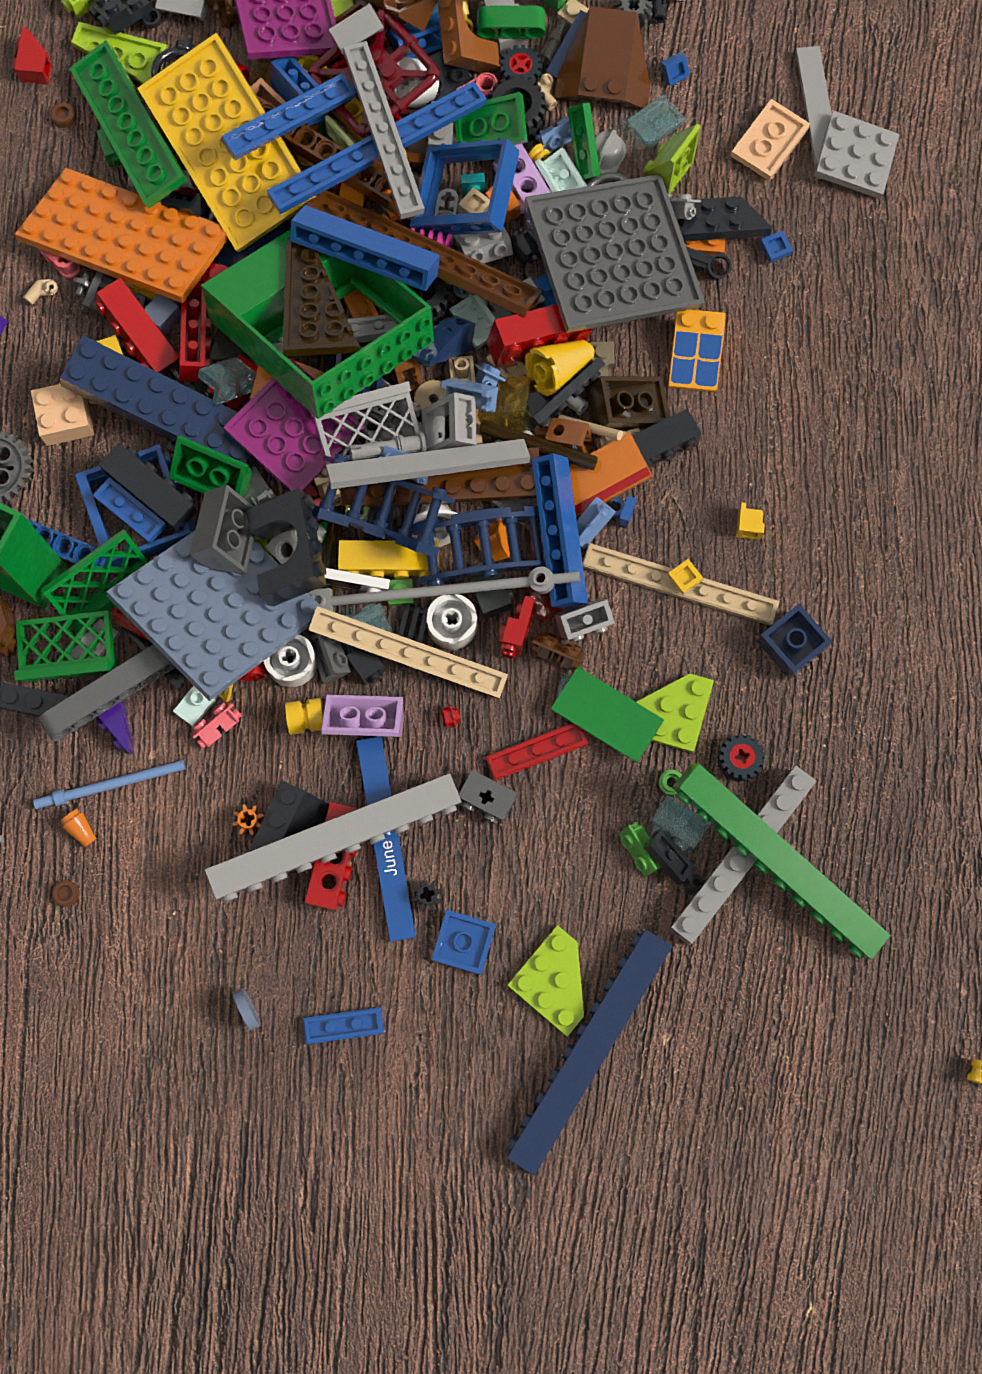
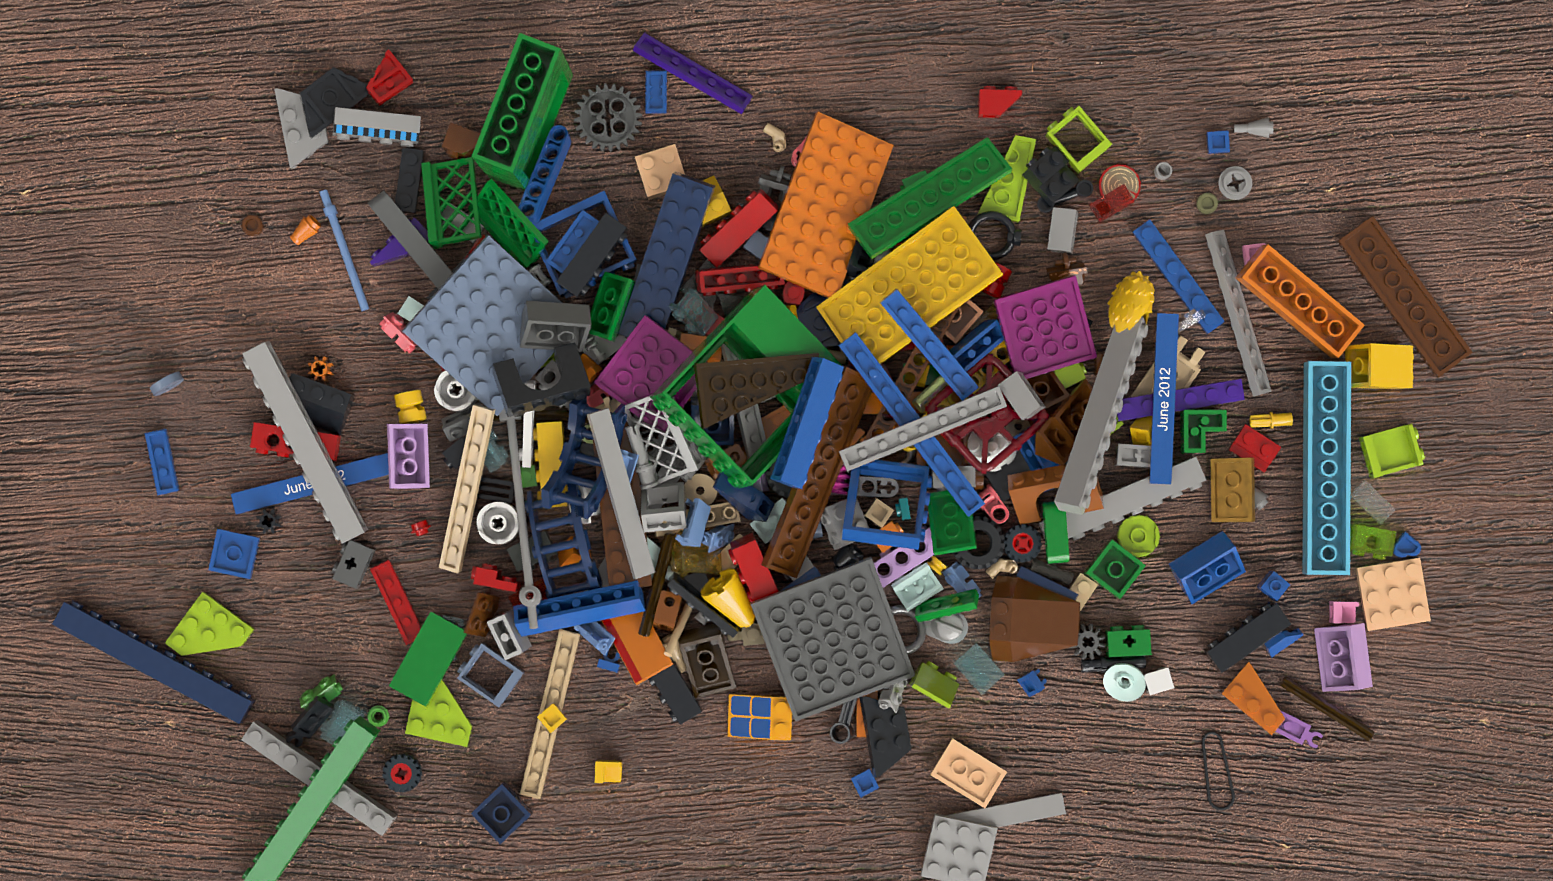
camera: 90 degrees right, 10 degrees up
(63, 115) = (946, 135): reddish brown tile -> none
(643, 625) = (465, 668): none -> sand blue window

